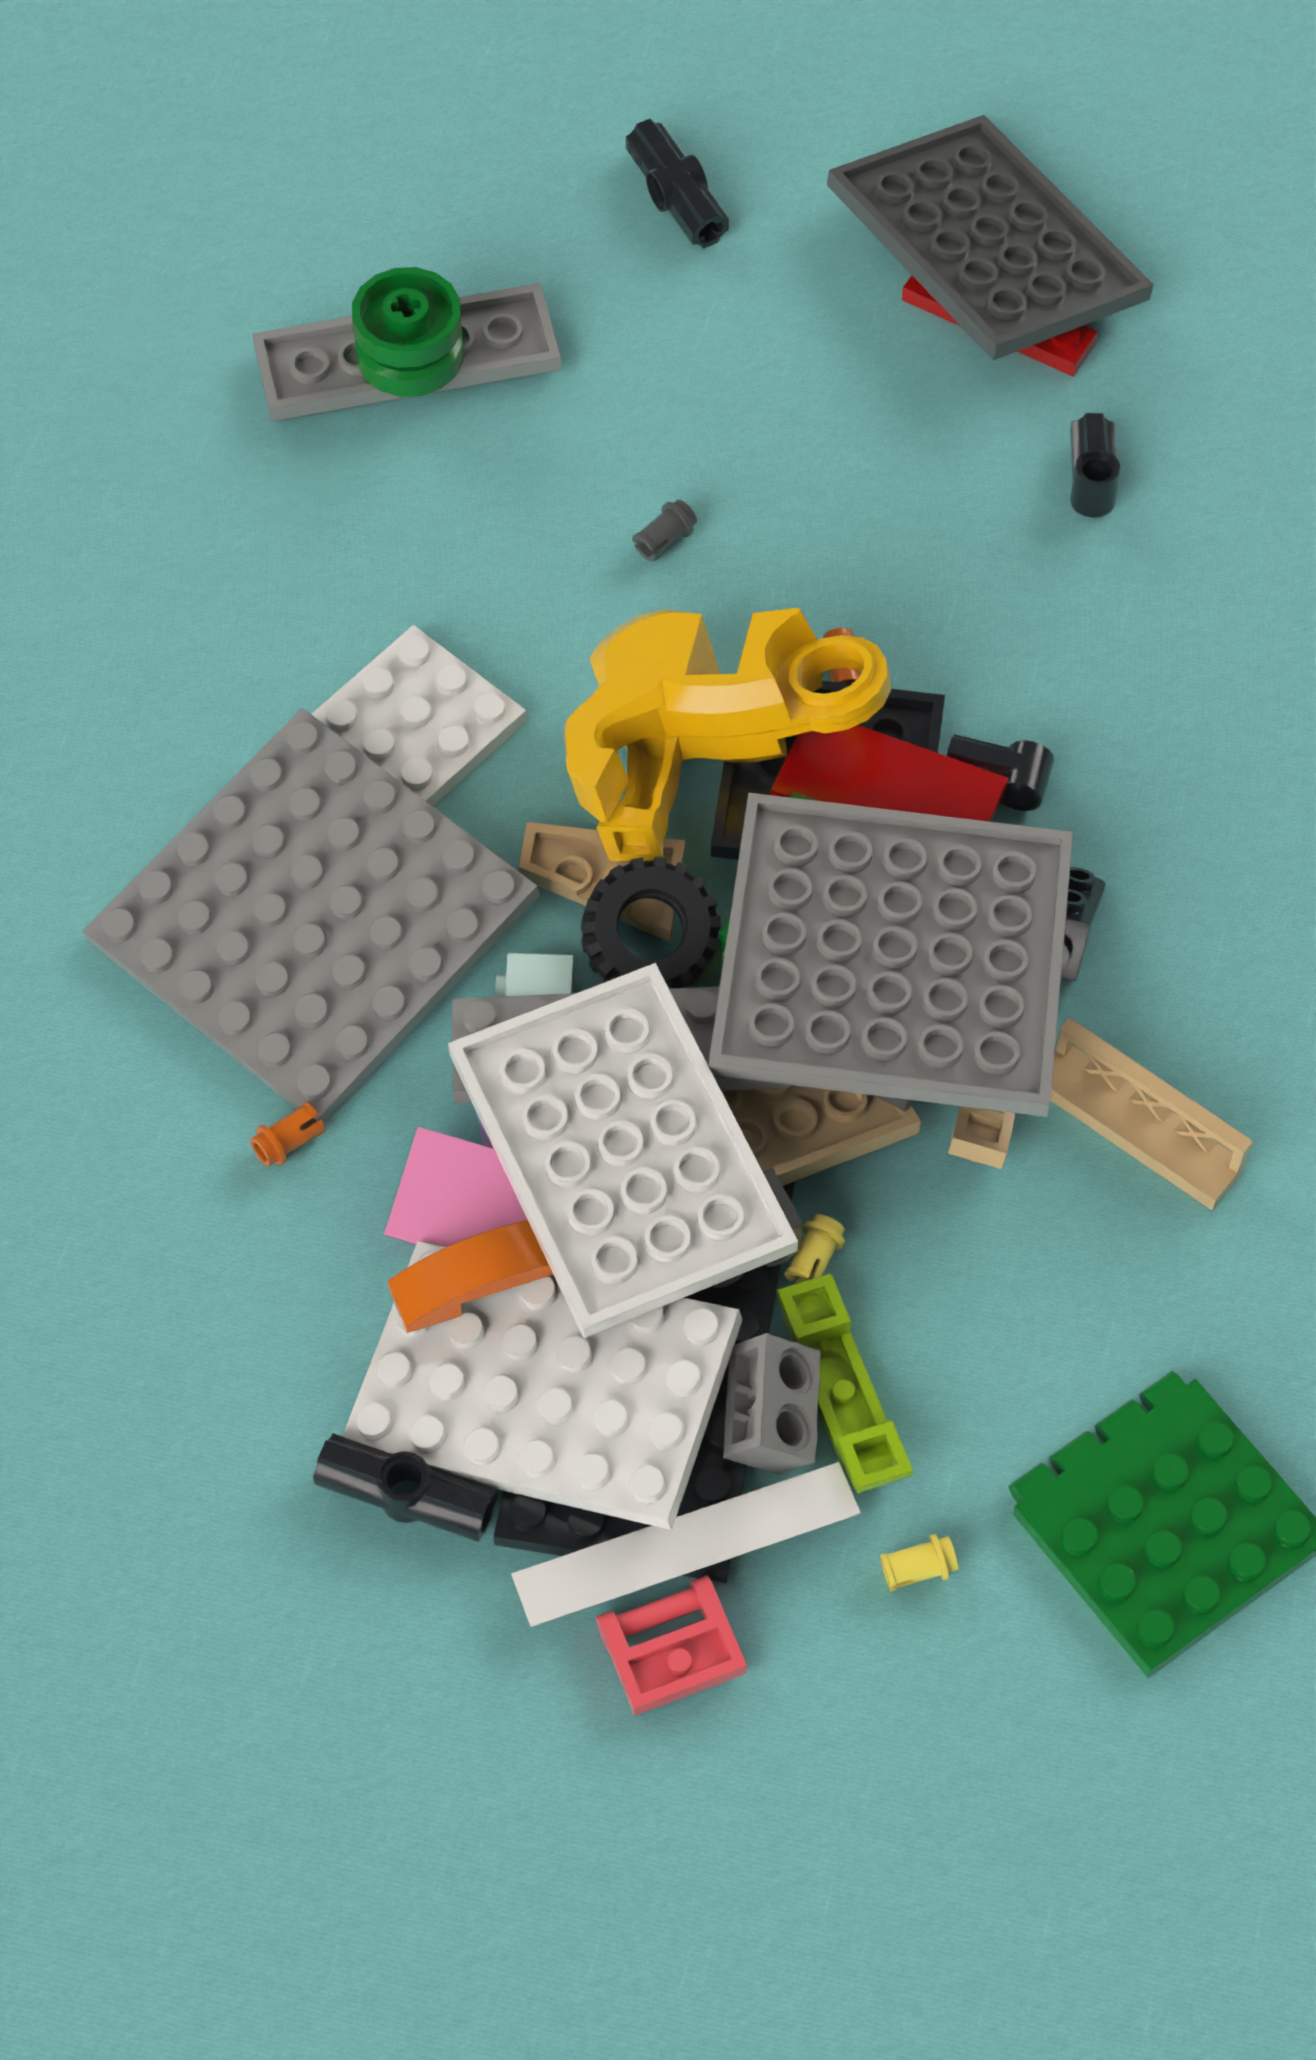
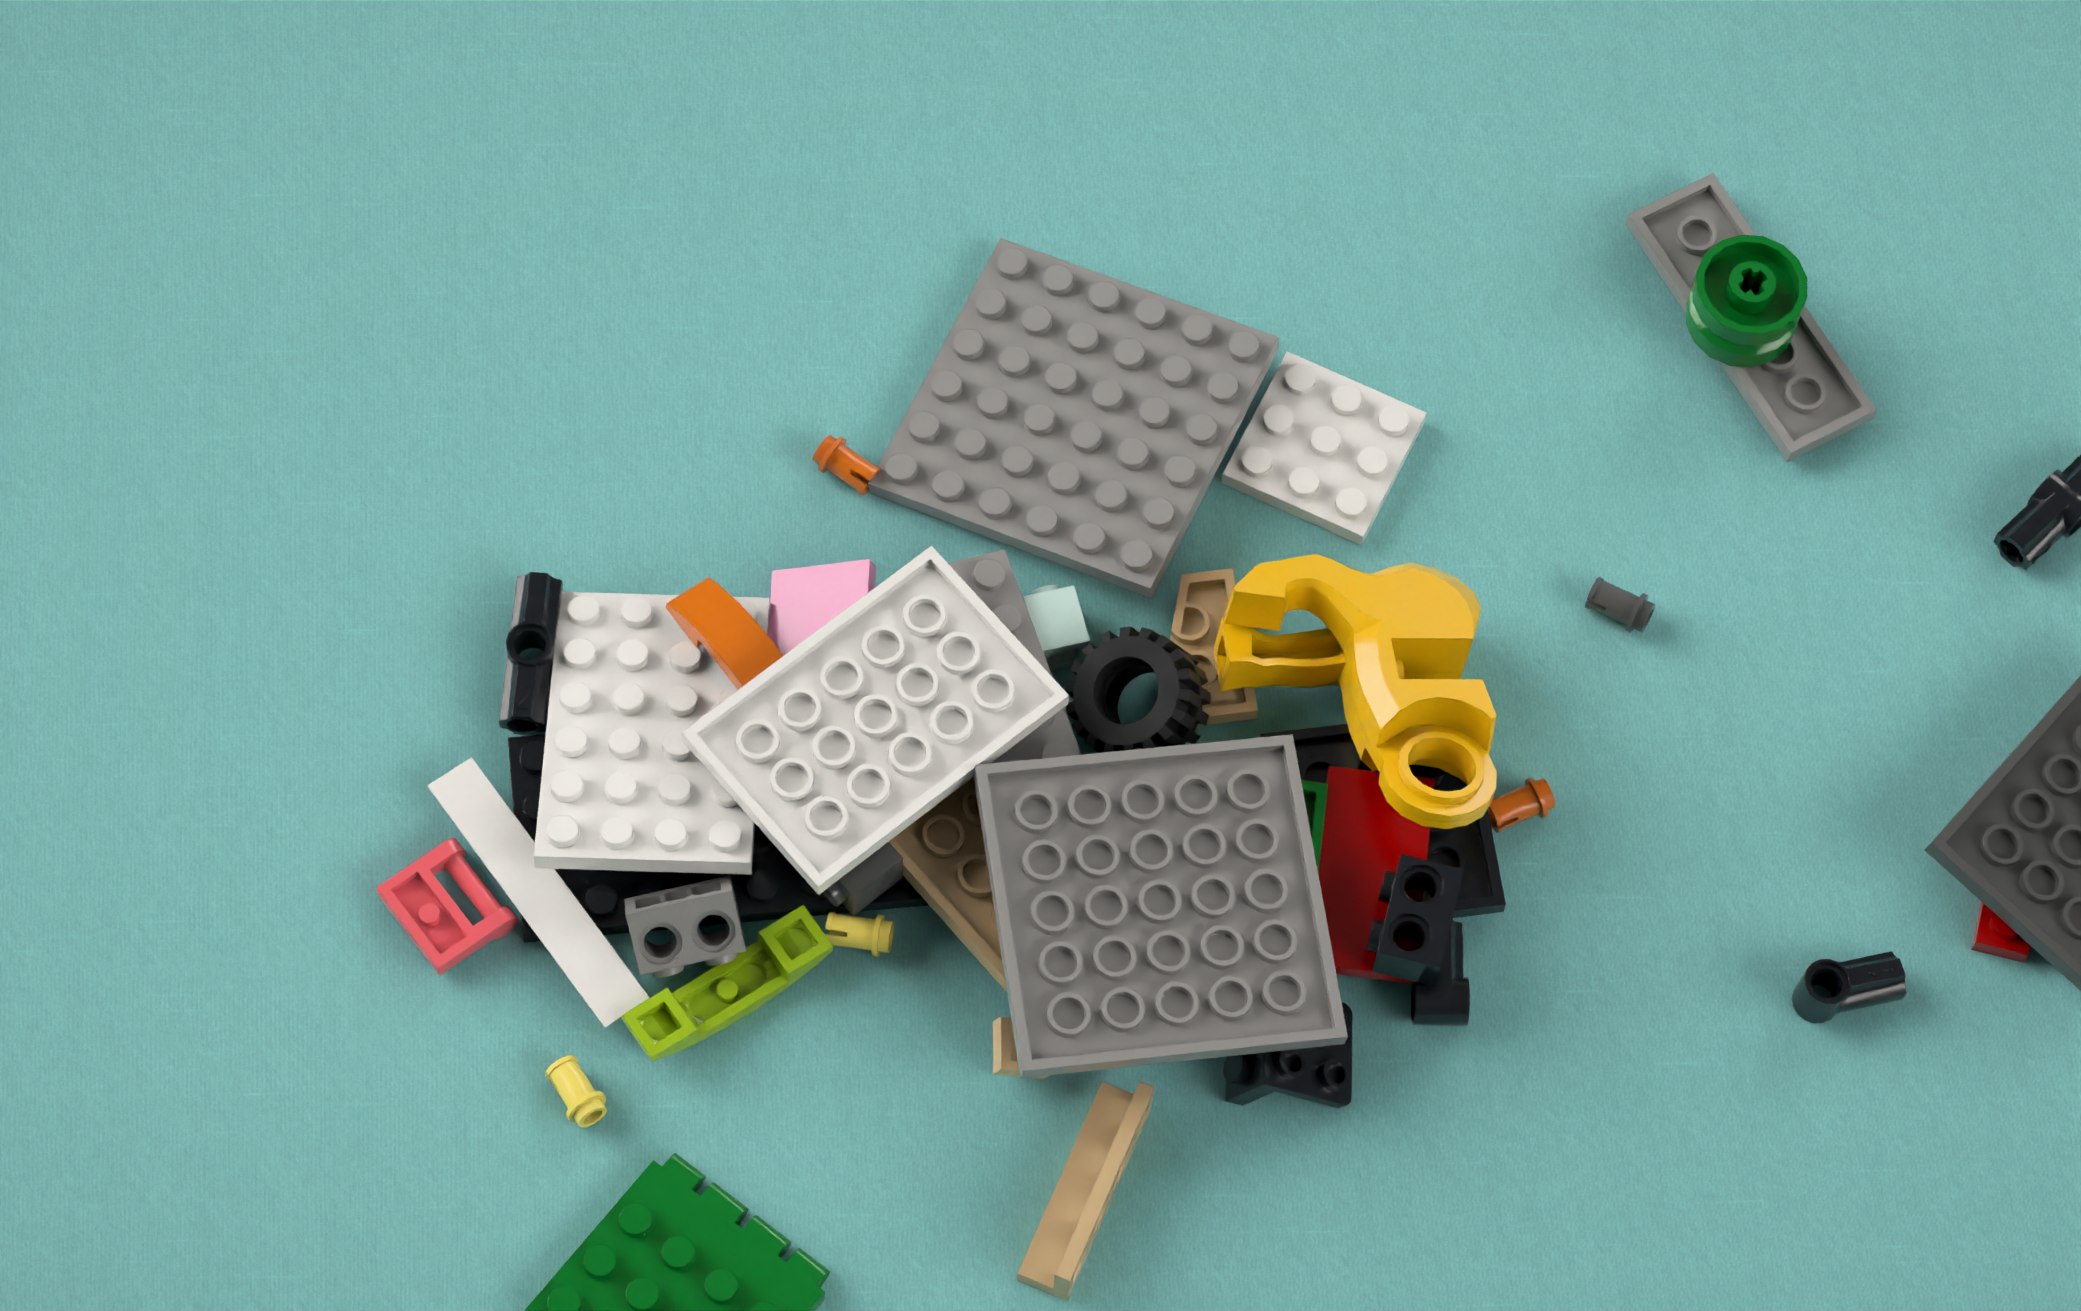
camera: 70 degrees right, 5 degrees up
(967, 741) = (1423, 921): none -> black brick

